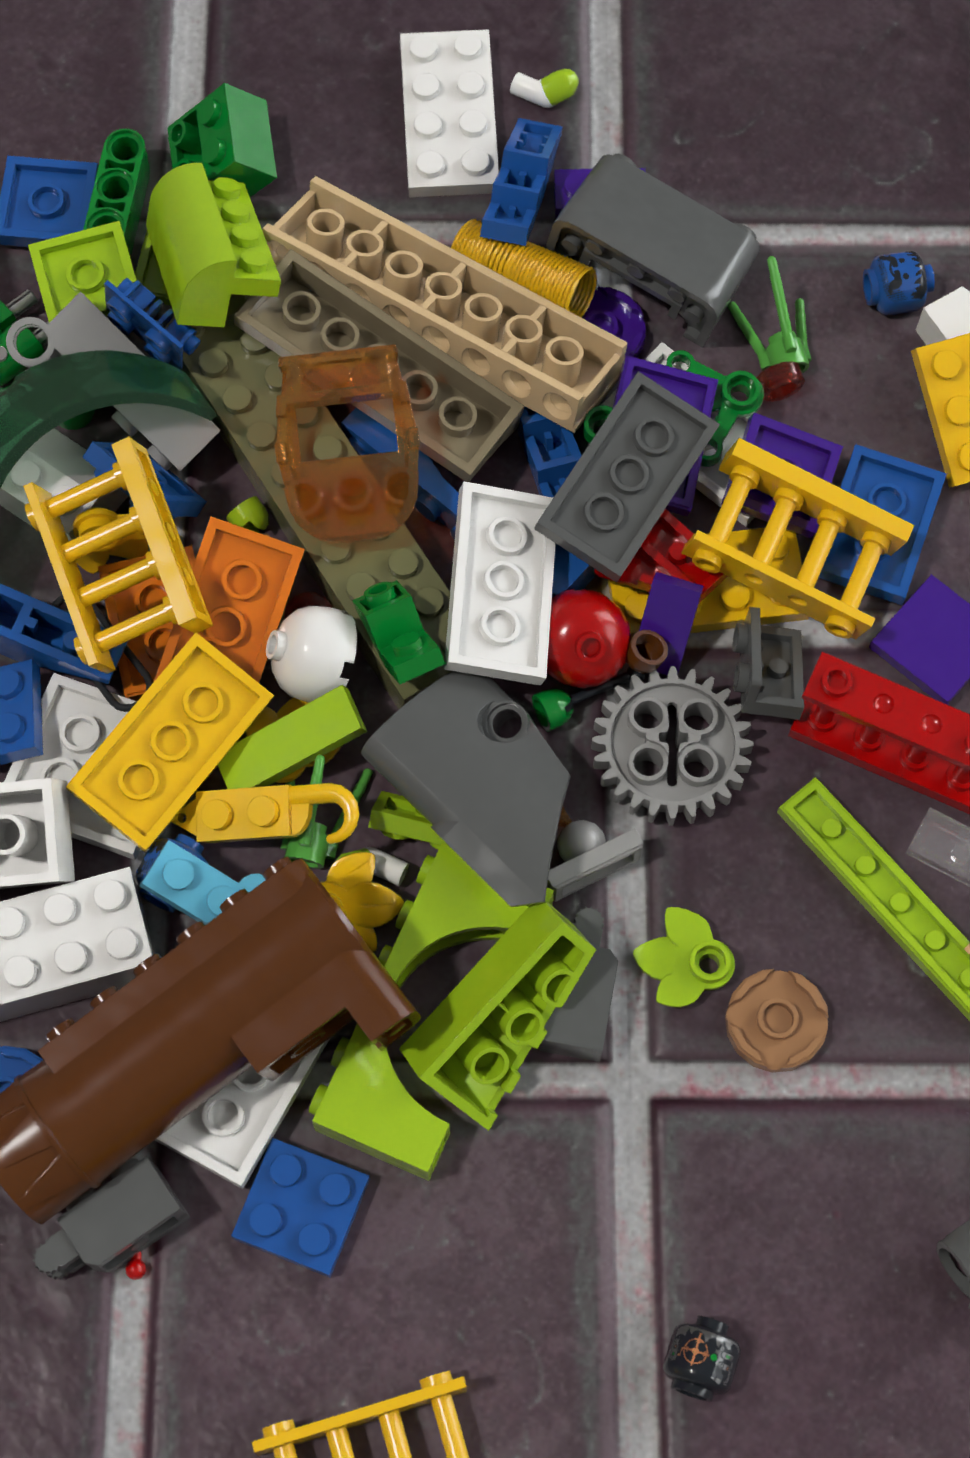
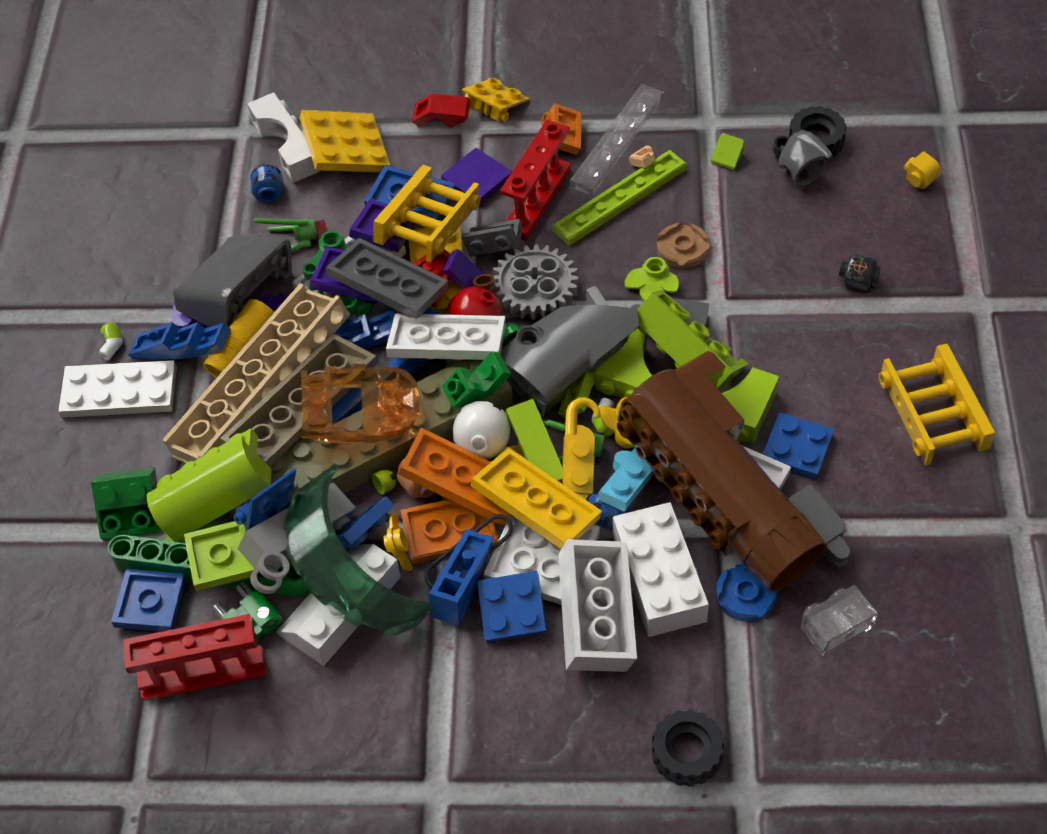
camera: 85 degrees left, 15 degrees down
(164, 560) = (428, 487): yellow fence -> none

